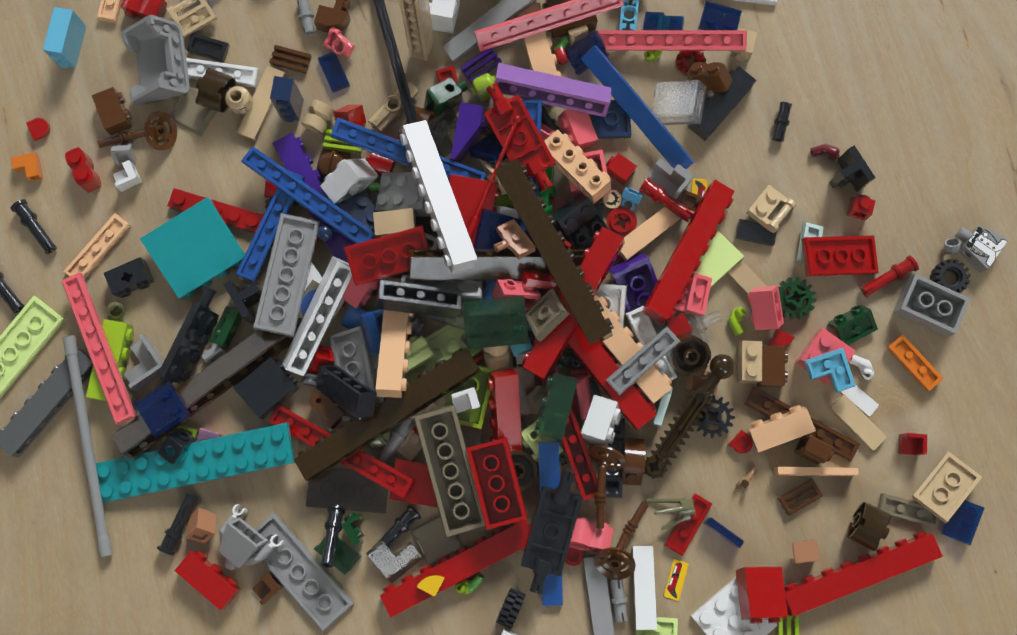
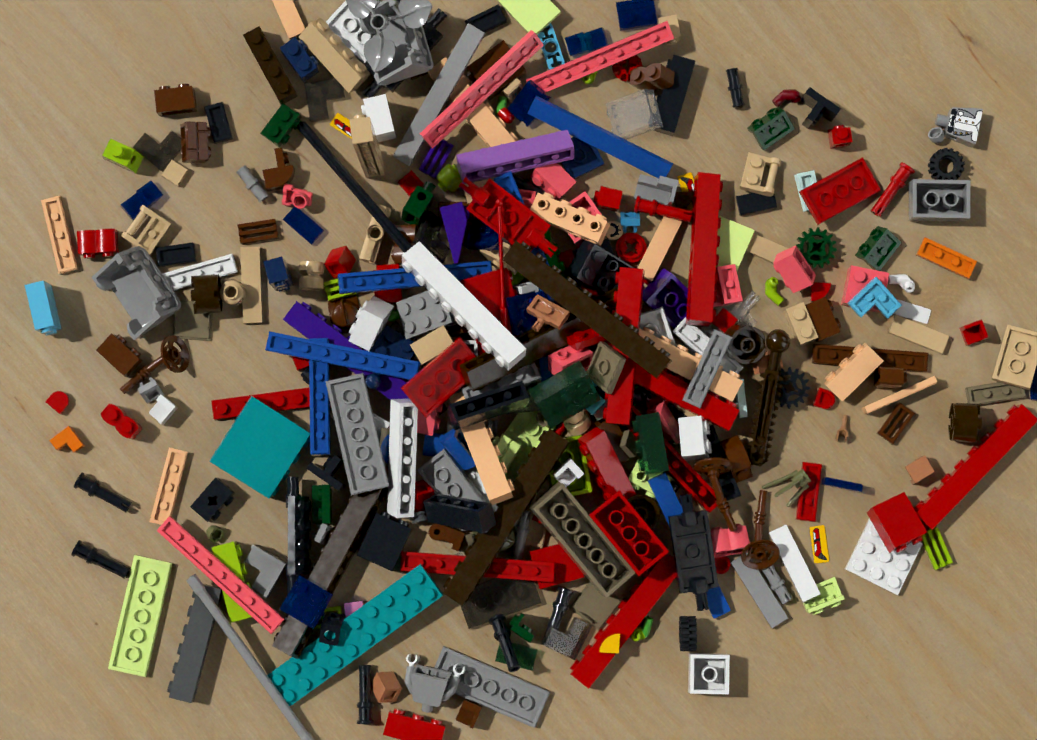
camera: 25 degrees left, 5 degrees up
(800, 171) = (771, 127): none -> dark green bracket

